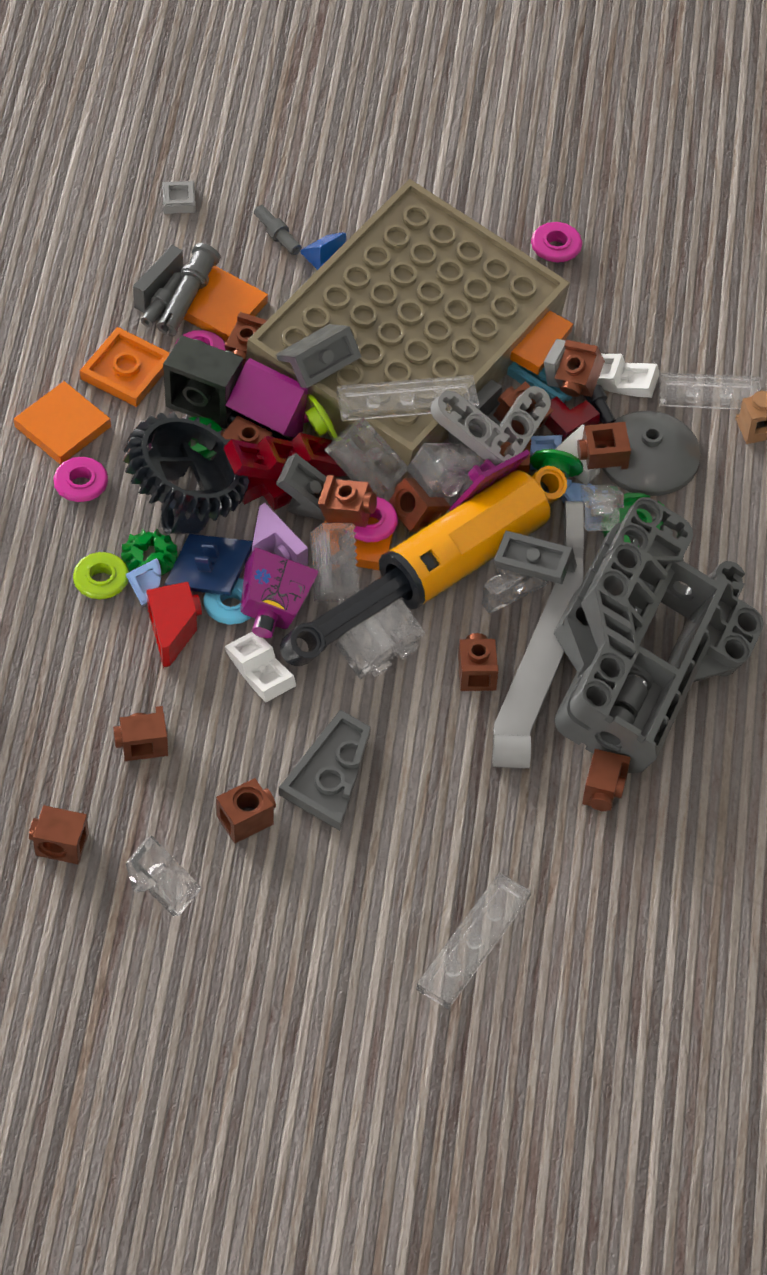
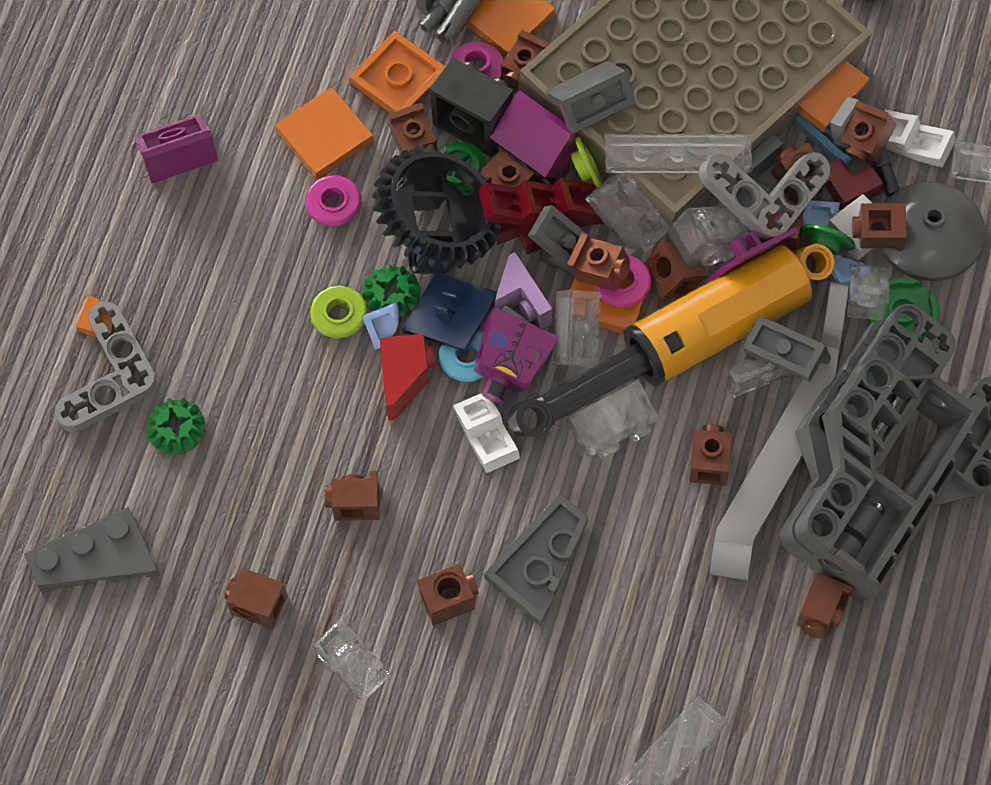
camera: 15 degrees right, 10 degrees up
(144, 403) = (411, 128): none -> copper brick

